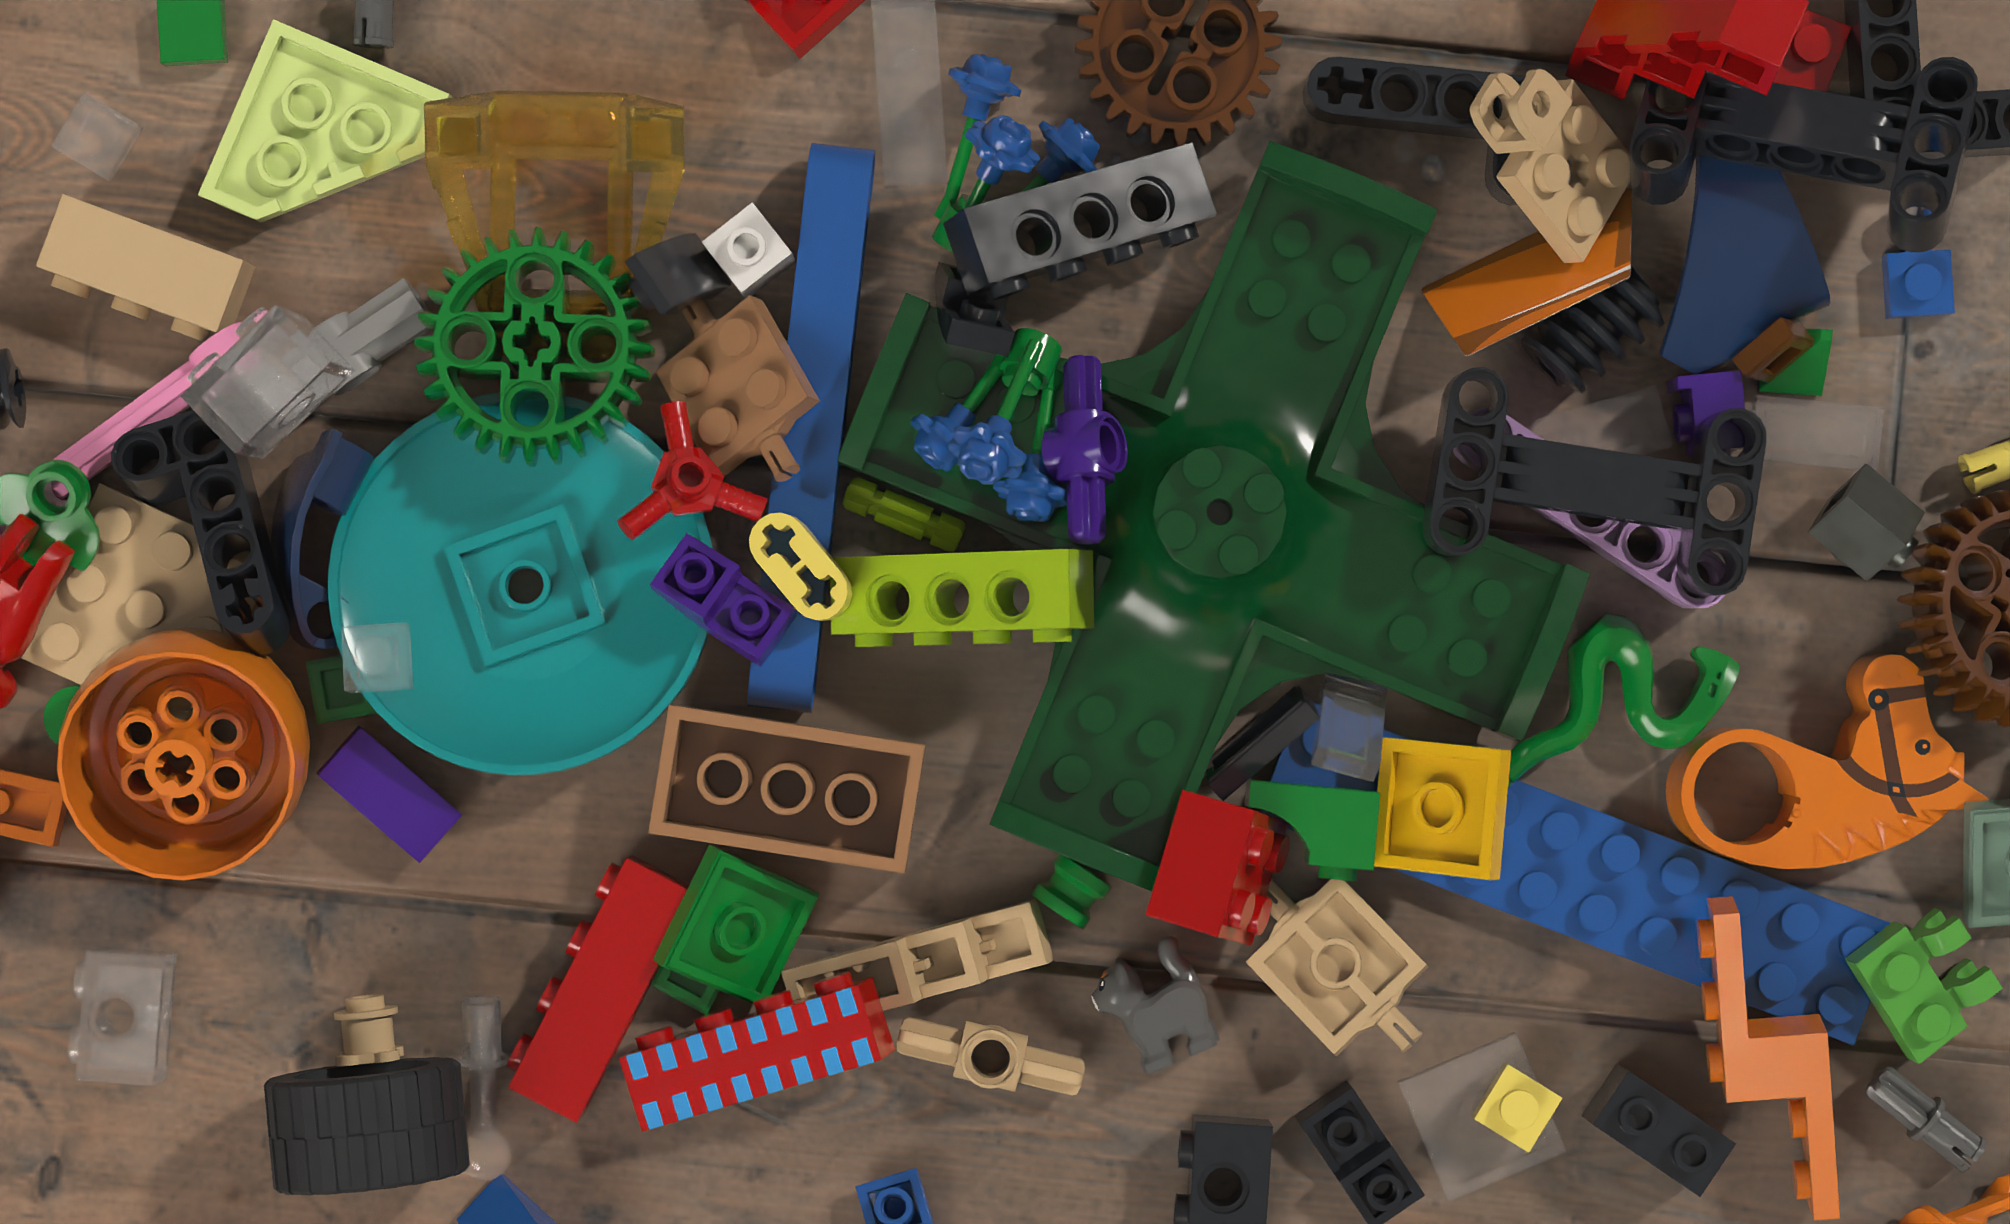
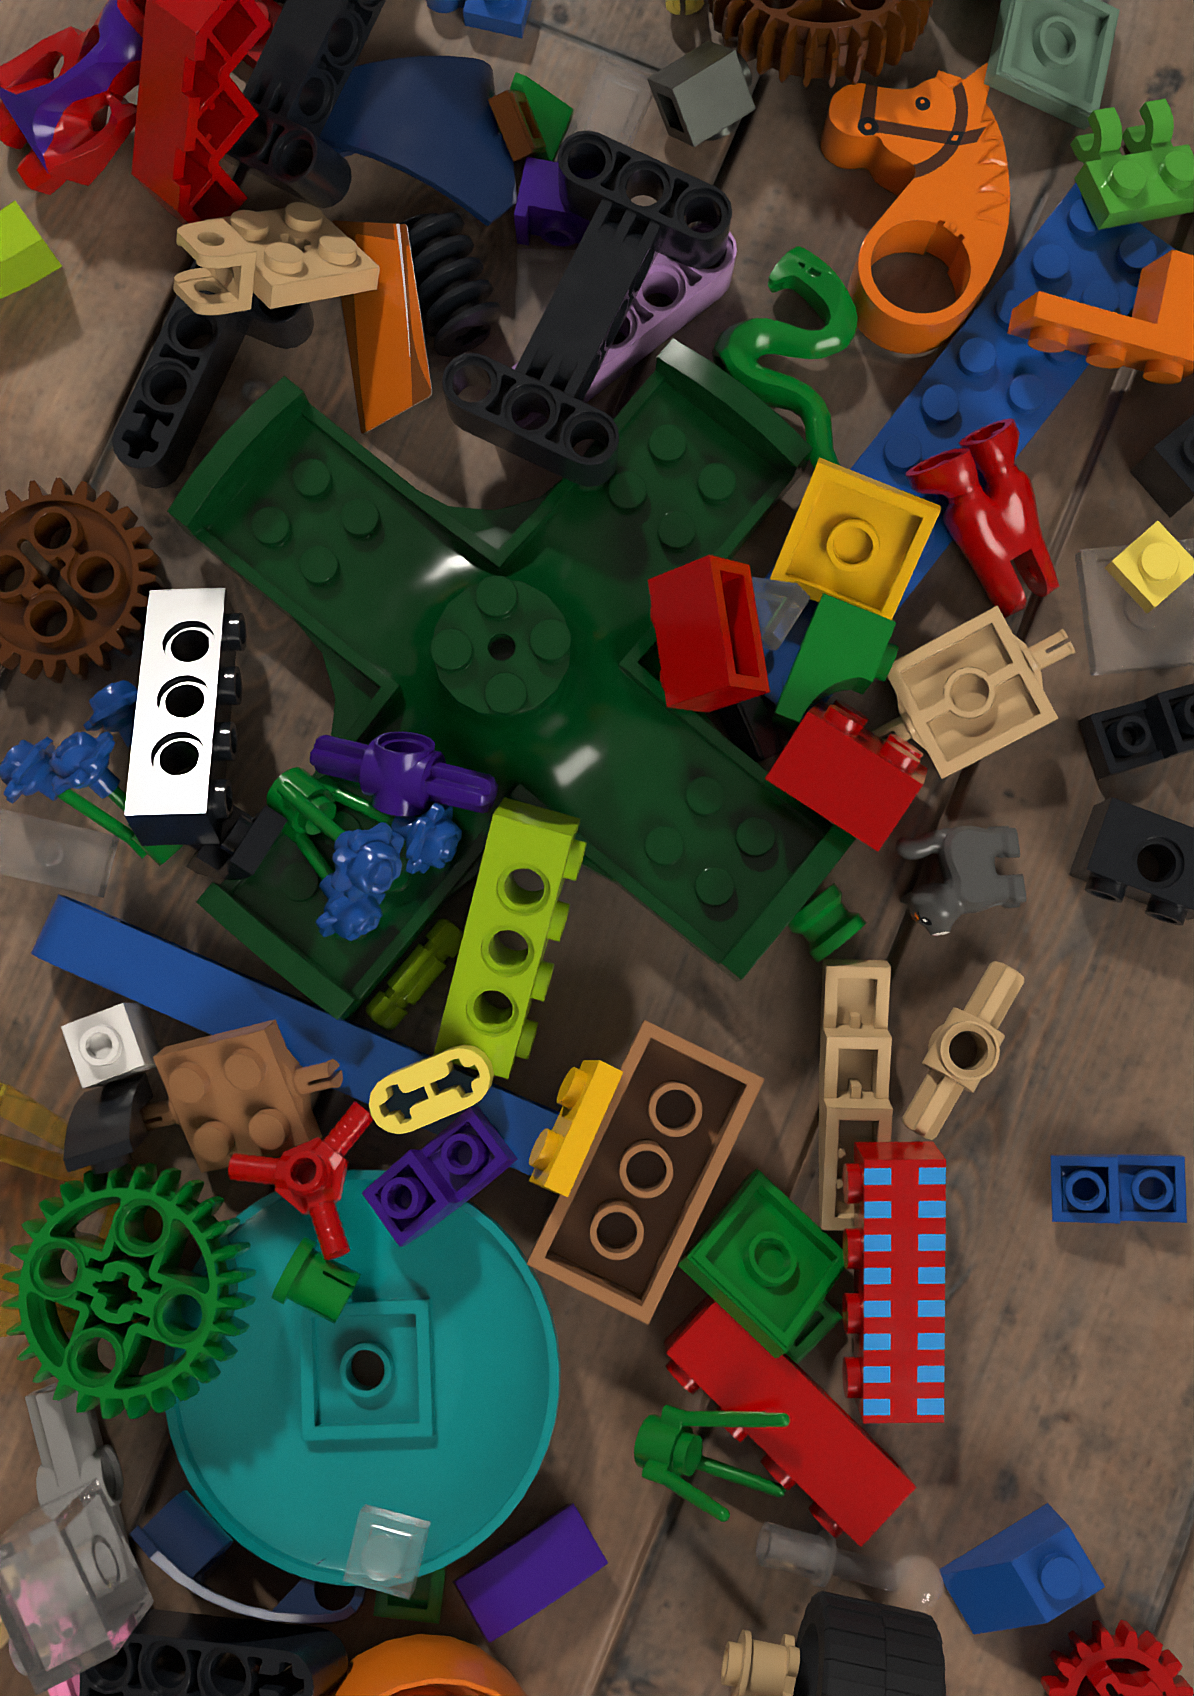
camera: 70 degrees left, 5 degrees down
(540, 888) = (670, 1448): none -> green plant
(593, 518) = (315, 1282): none -> green bush
(781, 706) = (584, 1101): none -> yellow plate
(1302, 695) = (708, 635): none -> red brick
(1513, 944) = (994, 522): none -> red piece

